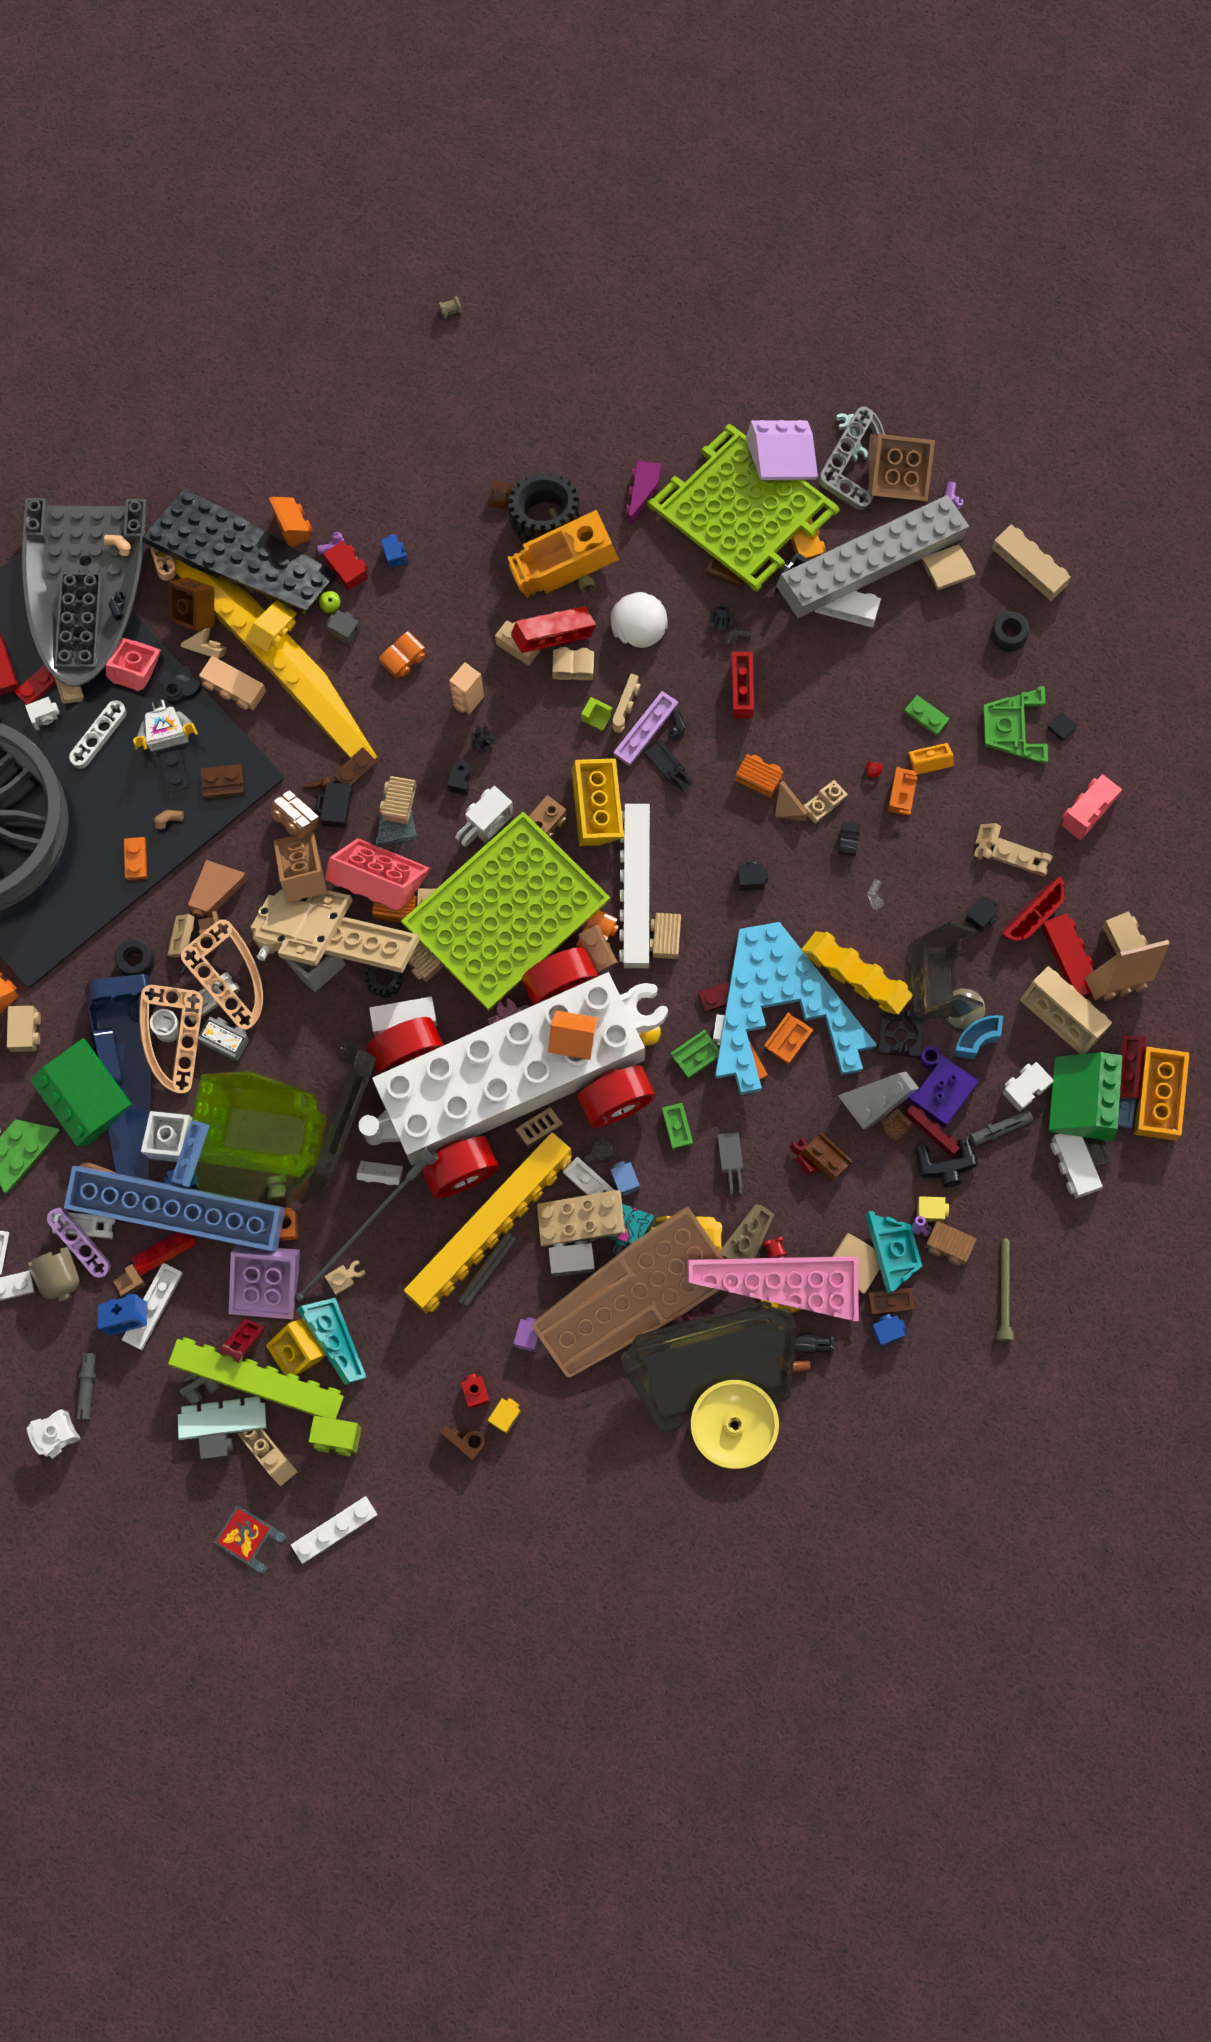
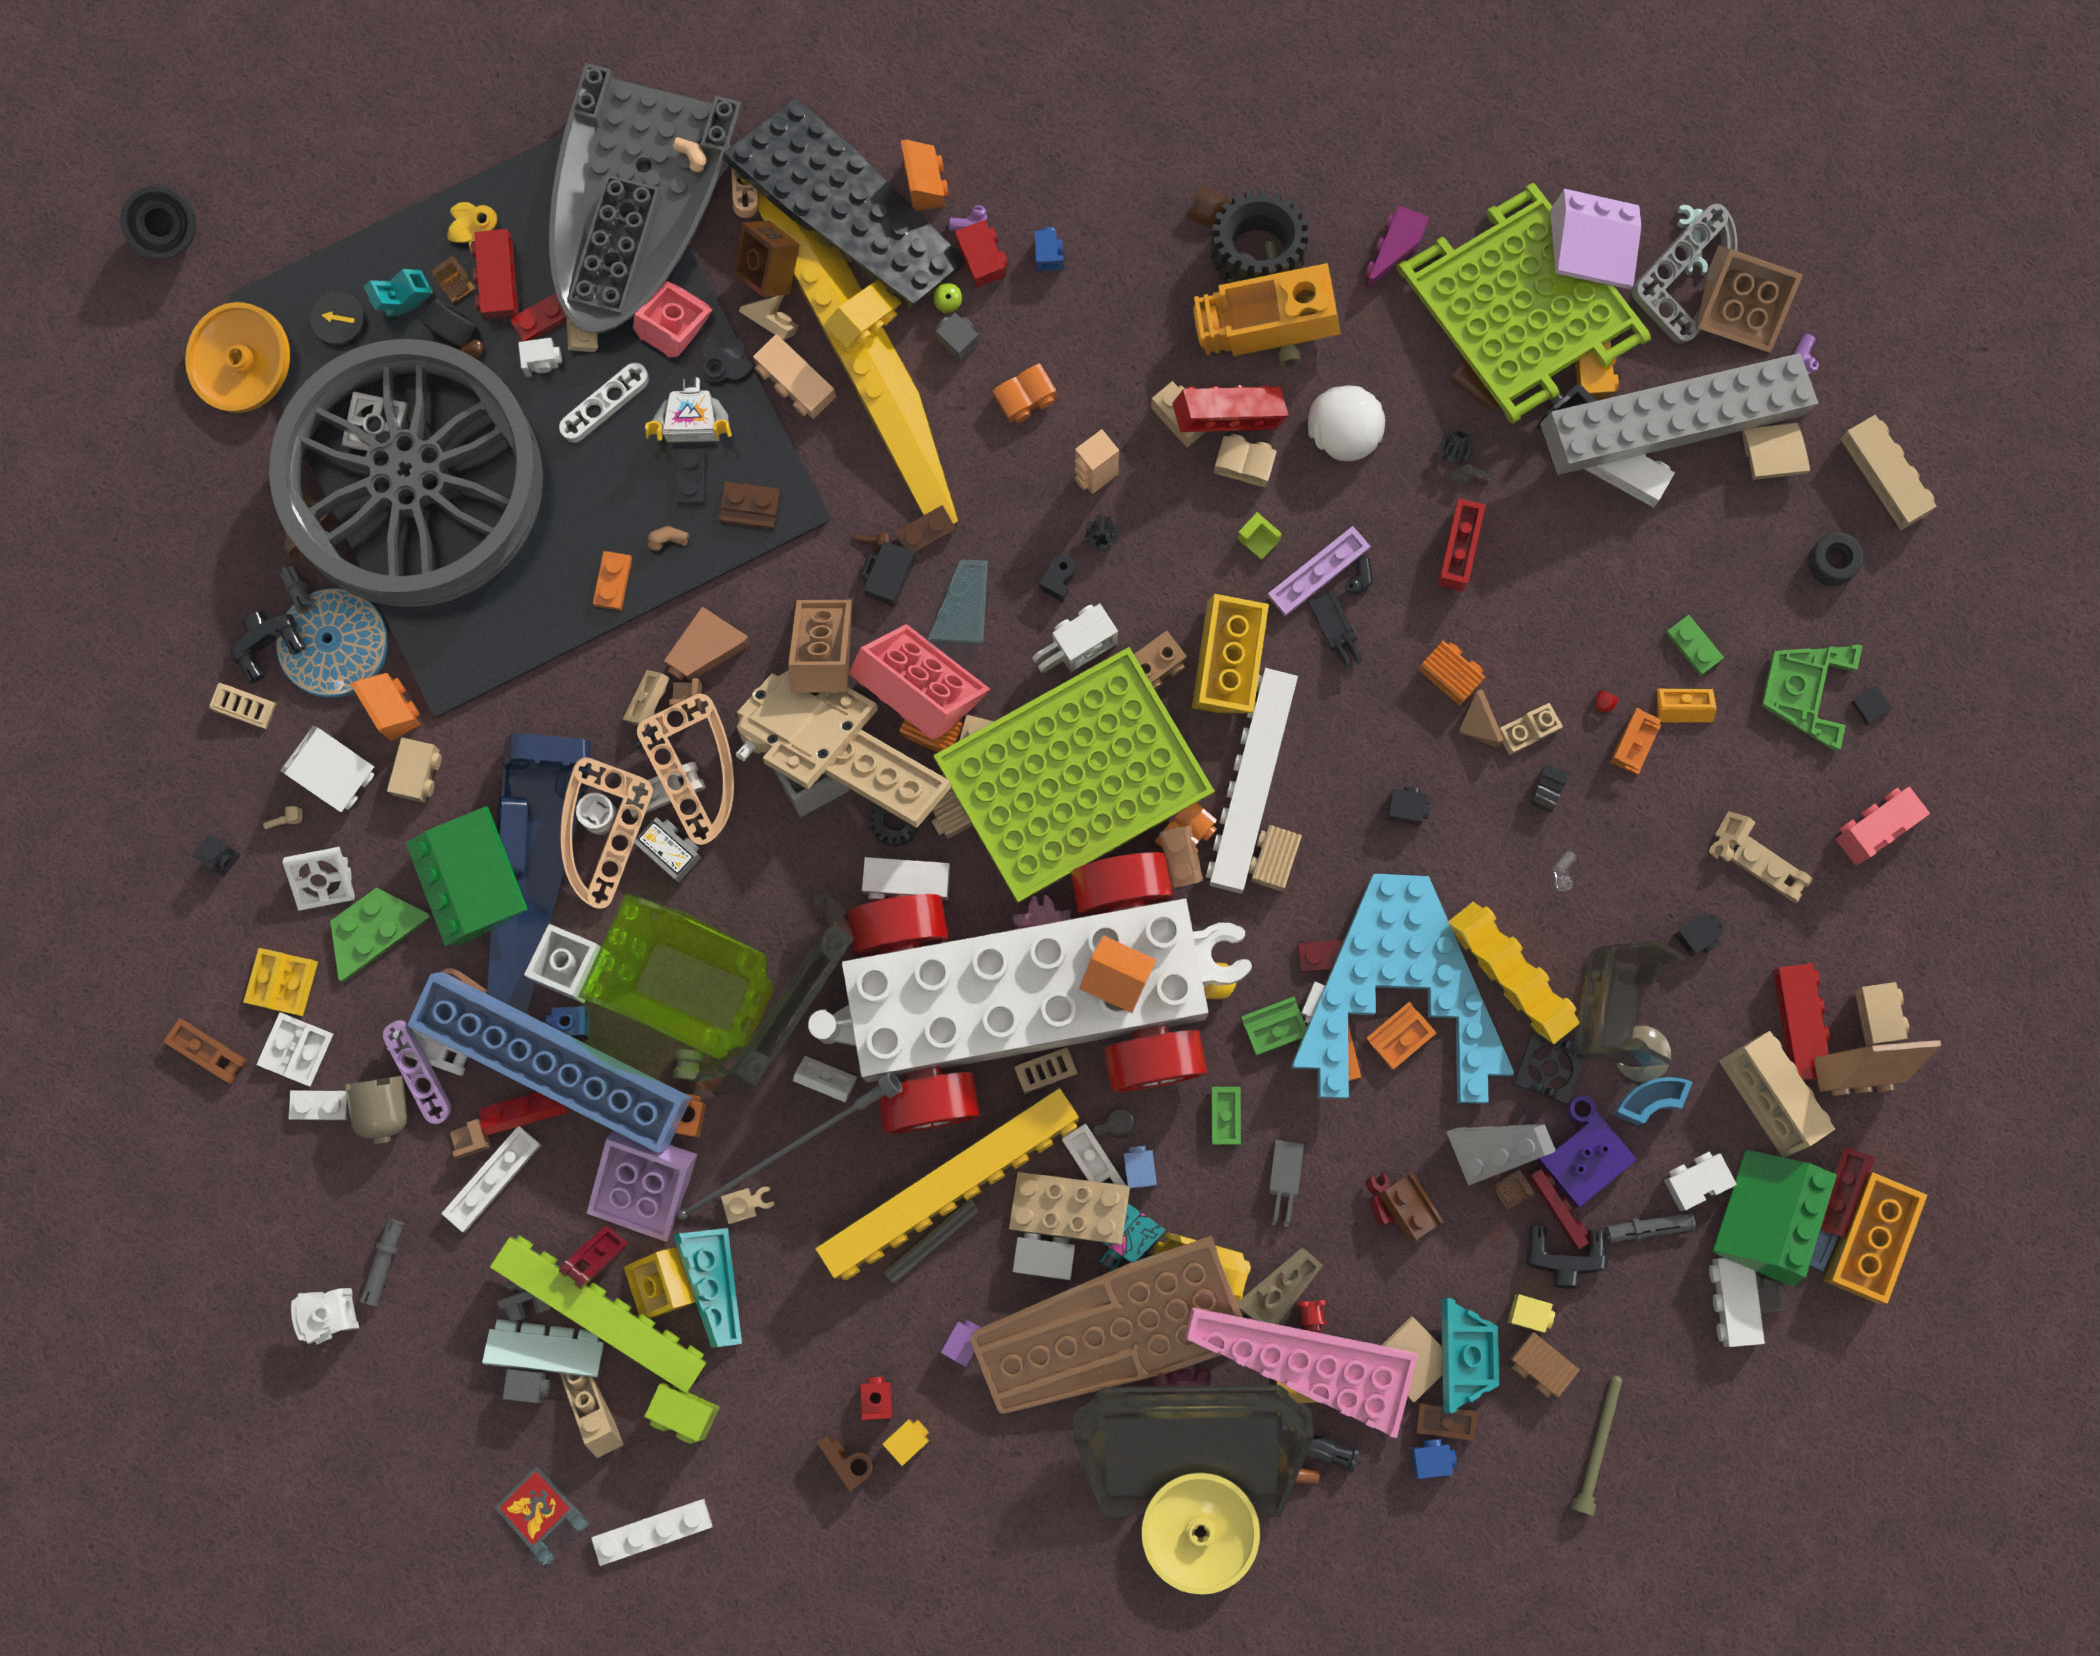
camera: 15 degrees right, 5 degrees up
(116, 604) = (668, 235): black arm -> none
(122, 1314) = (449, 1182): blue brick -> none
(131, 946) = (575, 697): black tyre -> none
(190, 1153) = (585, 996): medium blue tile -> none
(294, 815) = (830, 574): medium nougat brick -> none
(398, 800) = (970, 589): tan brick -> none
(625, 705) = (1300, 532): tan plate -> none
(921, 1226) = (1511, 1332): medium lavender arm -> none
(1036, 911) = (1771, 949): red brick -> none

